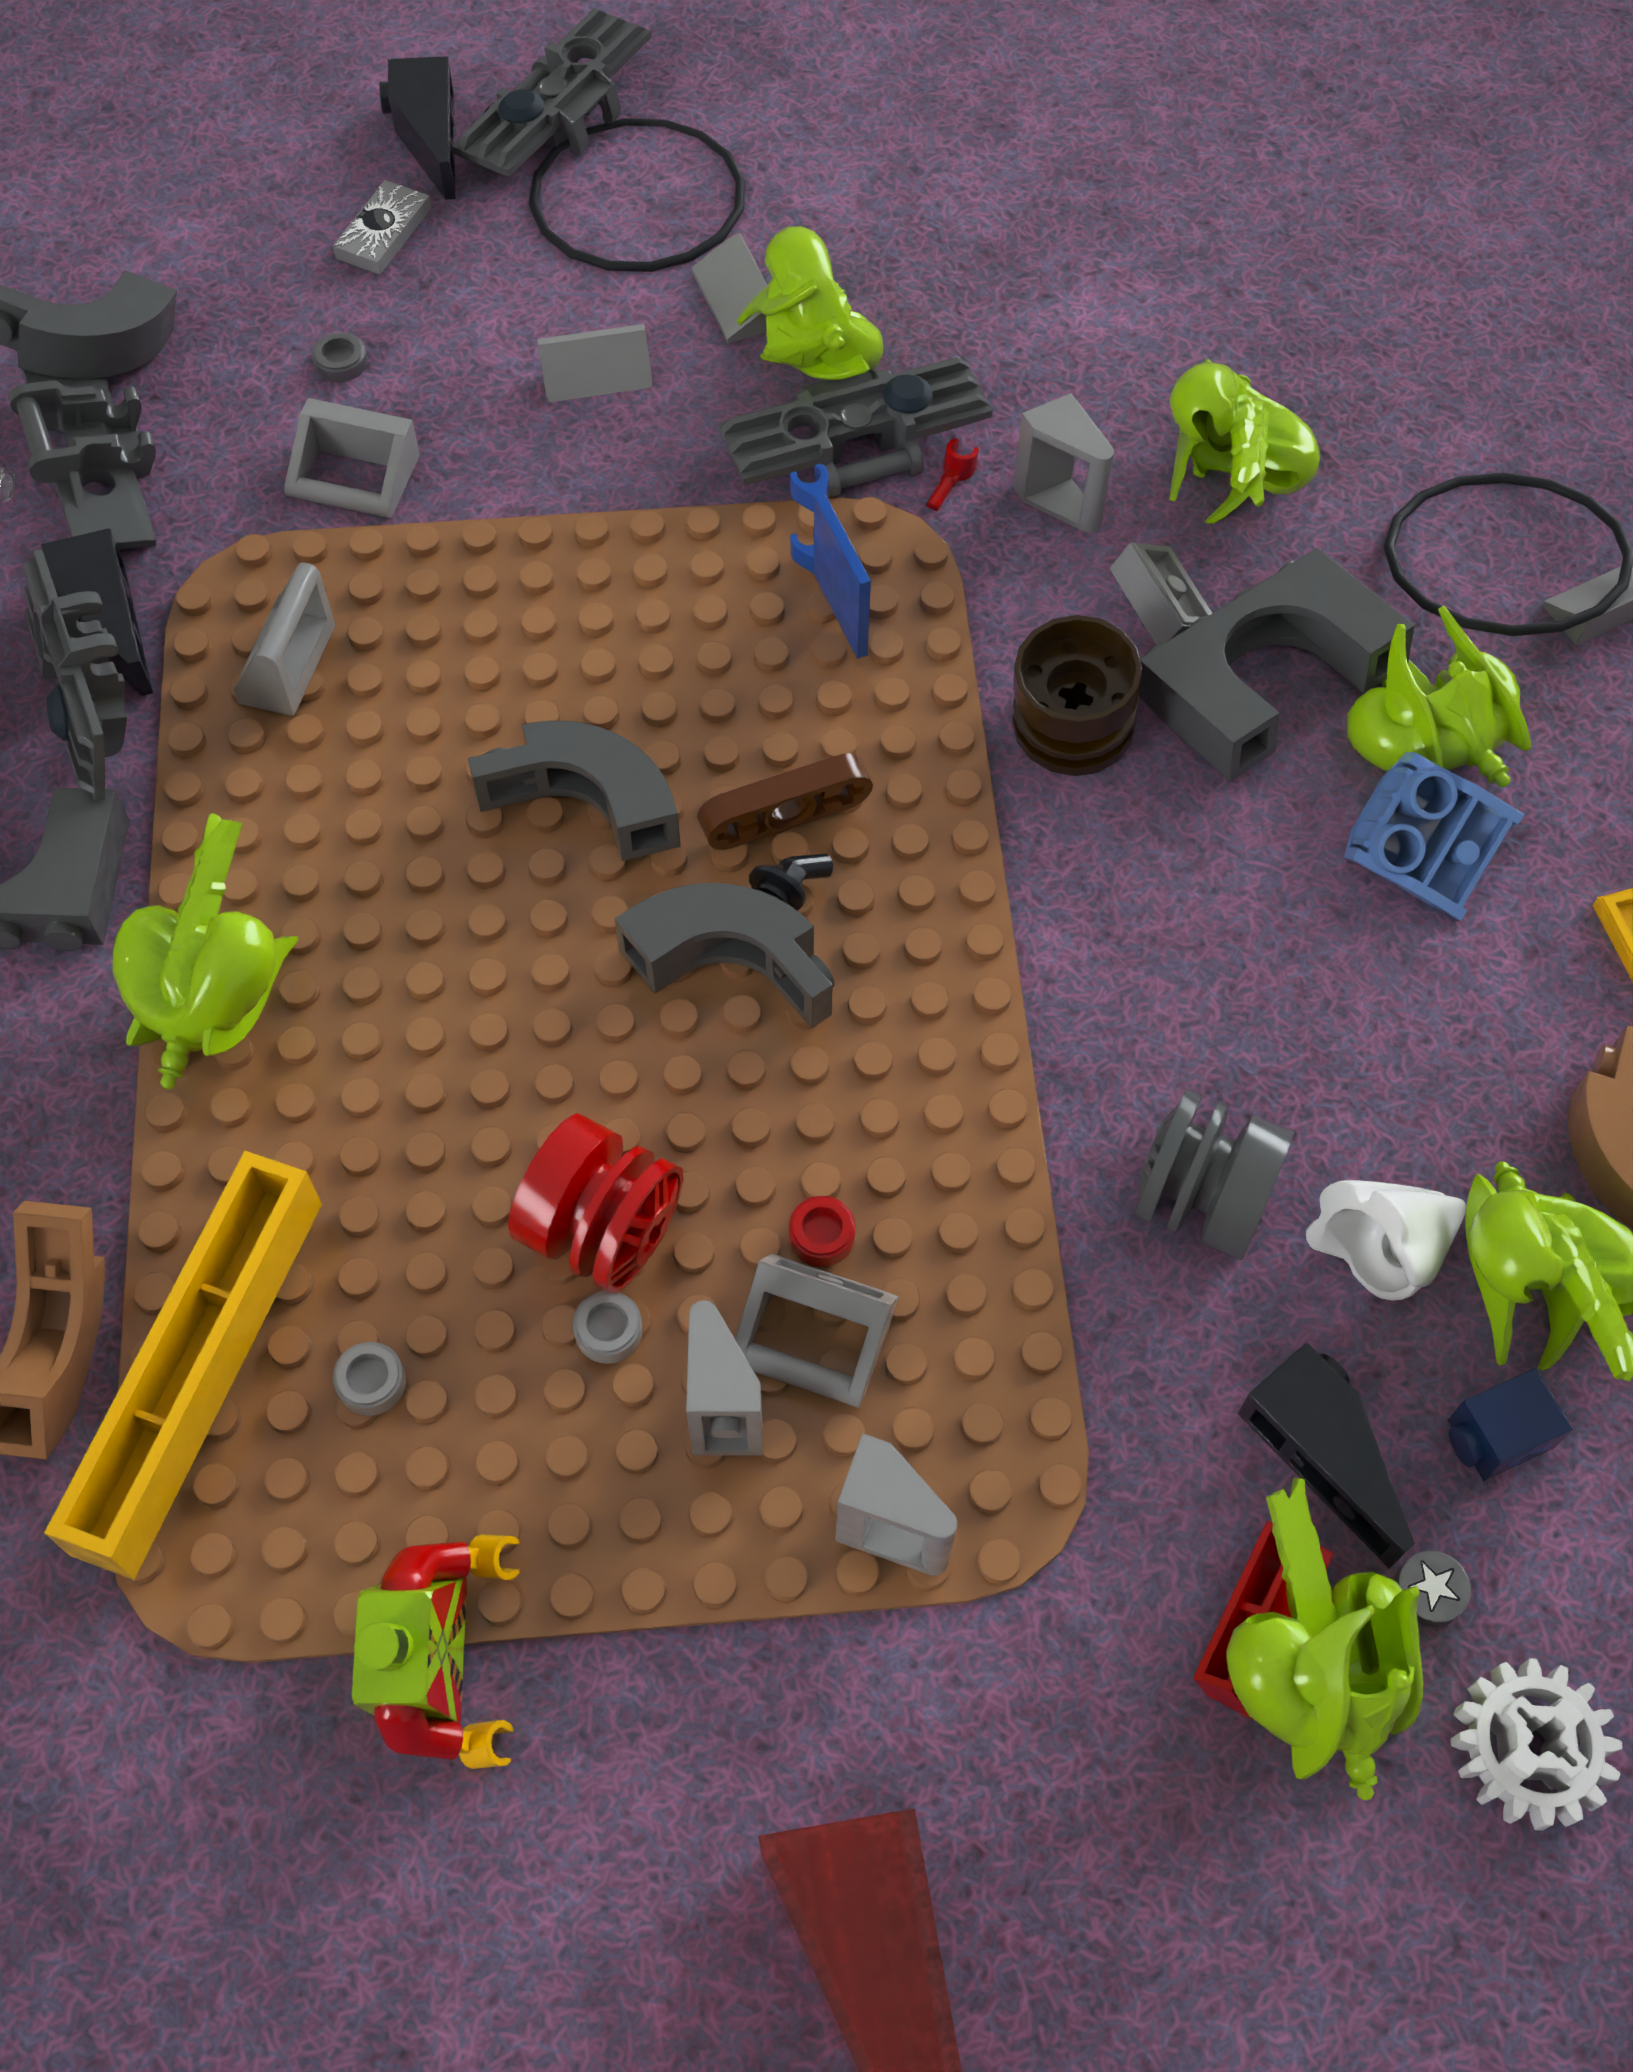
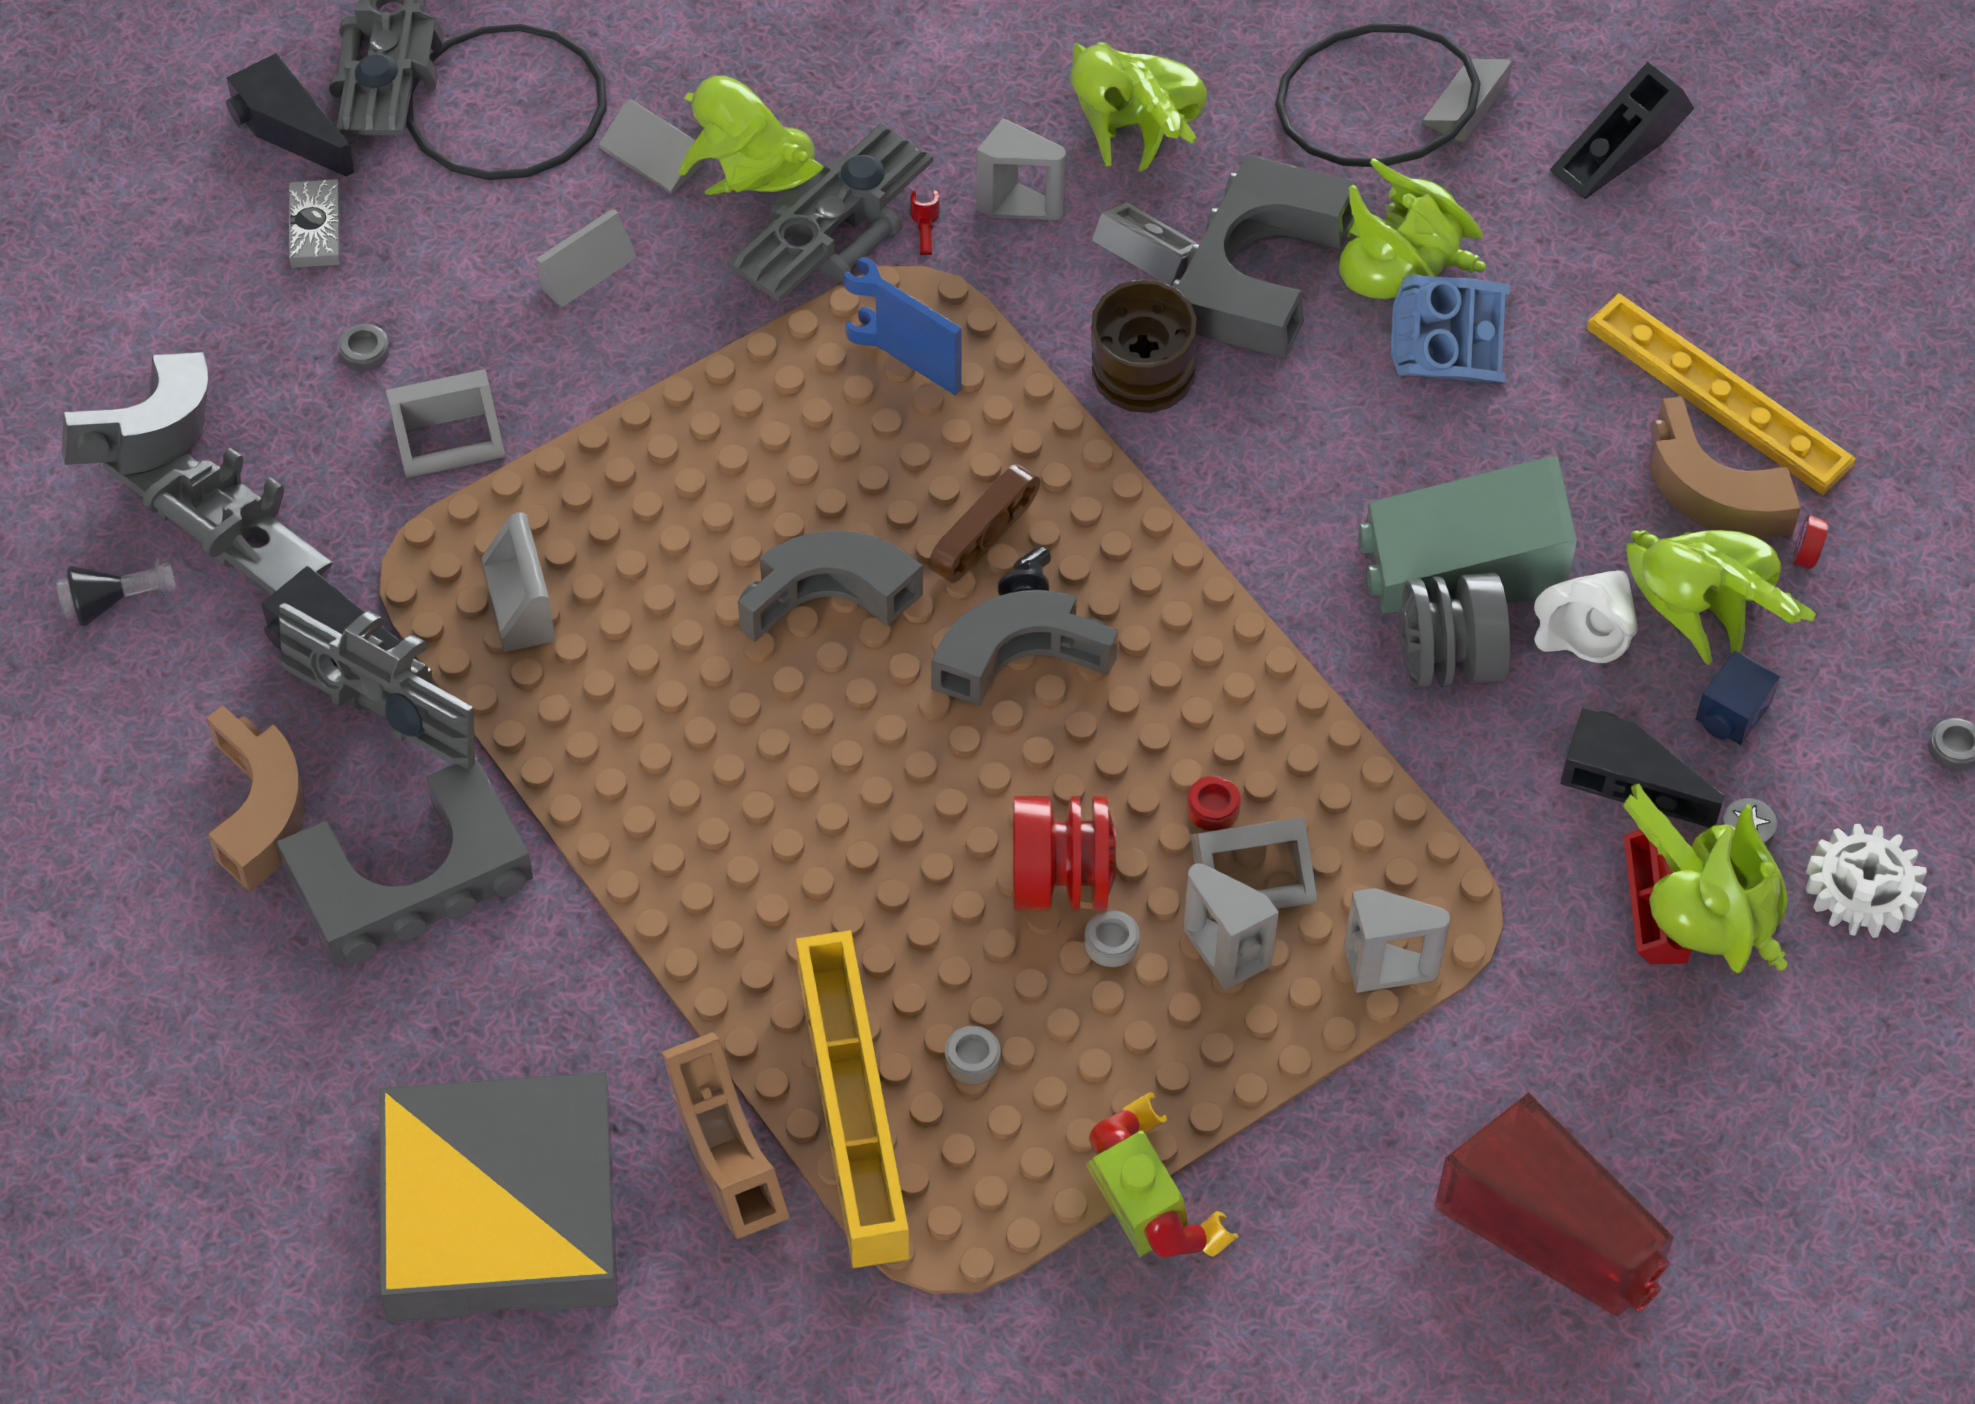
camera: 30 degrees left, 5 degrees down
(196, 972) = (661, 846): lime hair -> none
(1322, 1070) = (1486, 523): none -> sand green slope

